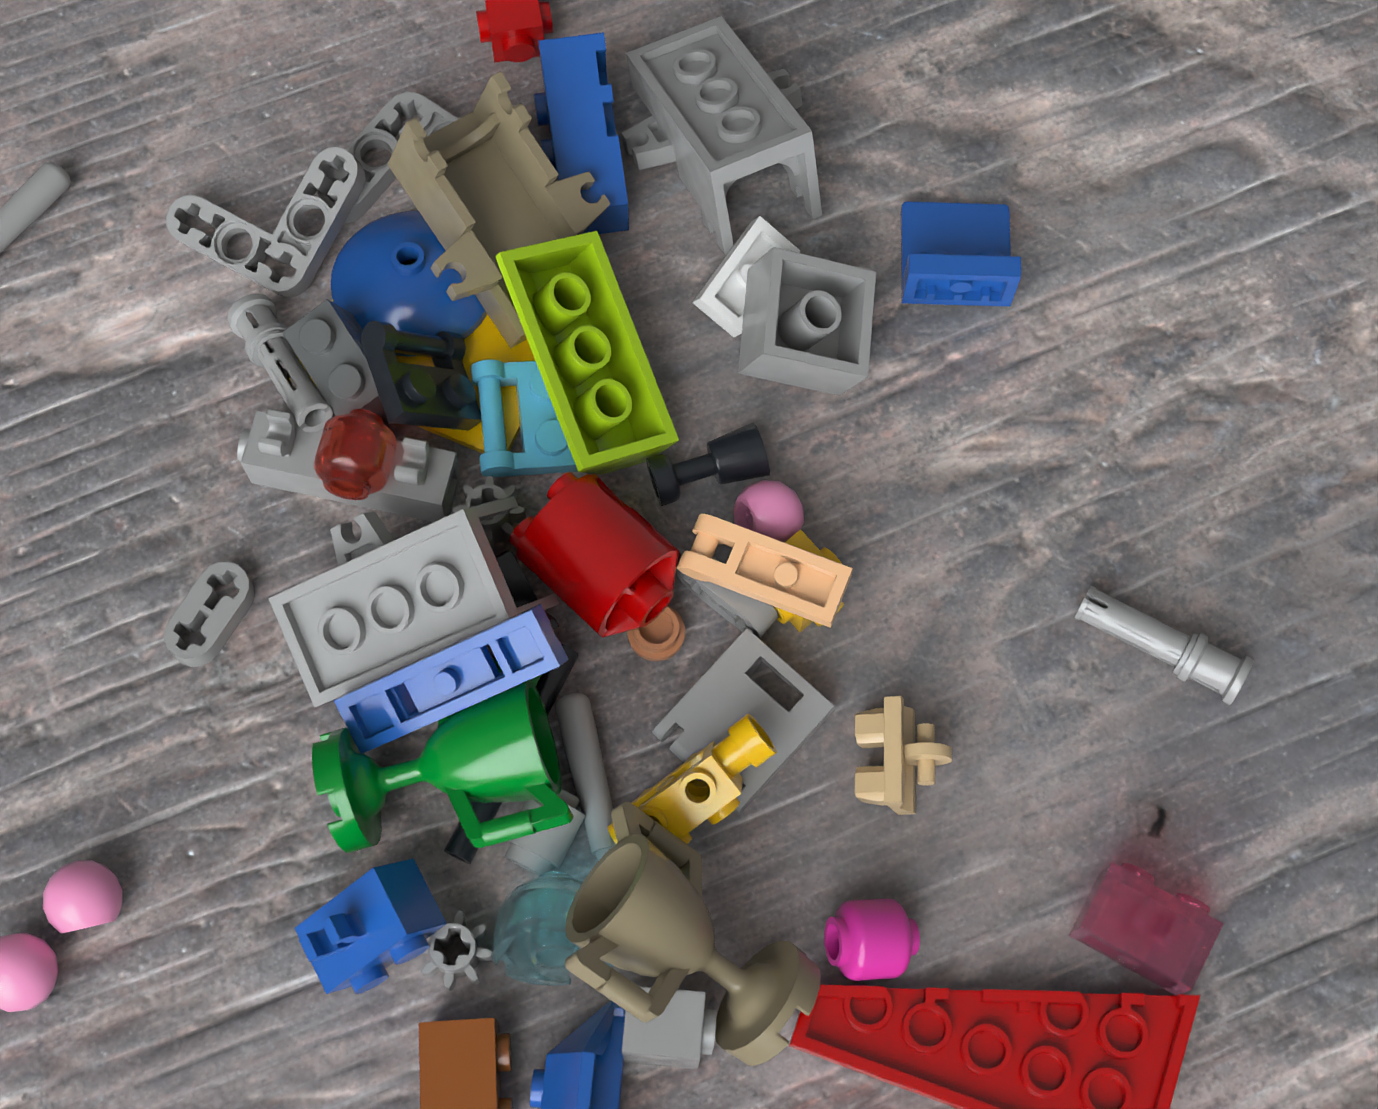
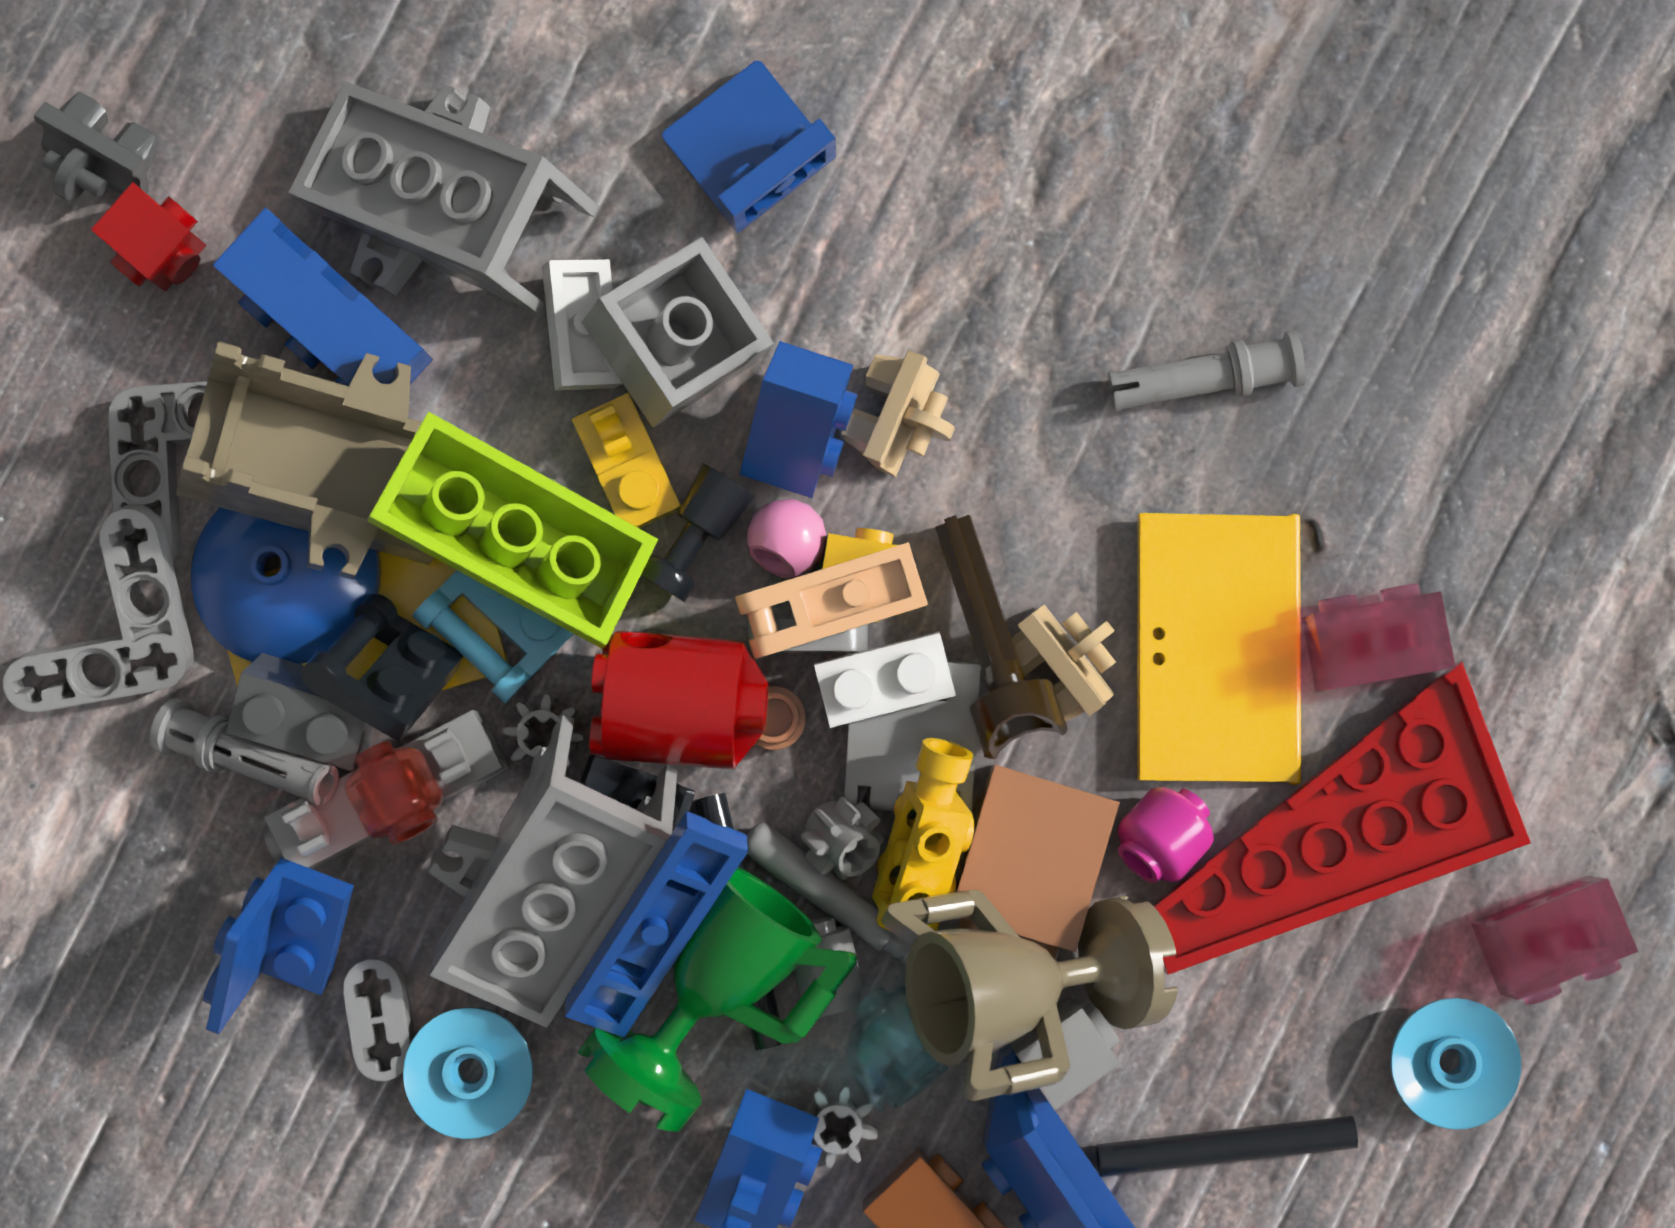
camera: 35 degrees left, 15 degrees up
(197, 489) = (284, 930): none -> blue bracket
(216, 676) = (443, 1094): none -> medium azure dish
(633, 748) = (842, 838): none -> light grey gear
(701, 386) = (626, 462): none -> yellow plate
(757, 658) = (884, 679): none -> white plate
(767, 873) = (1037, 855): none -> nougat brick
(834, 747) = (1013, 703): none -> dark brown piece
(842, 437) = (797, 418): none -> blue brick
(917, 501) = (908, 415): none -> tan hips
(1012, 864) = (1227, 647): none -> yellow container

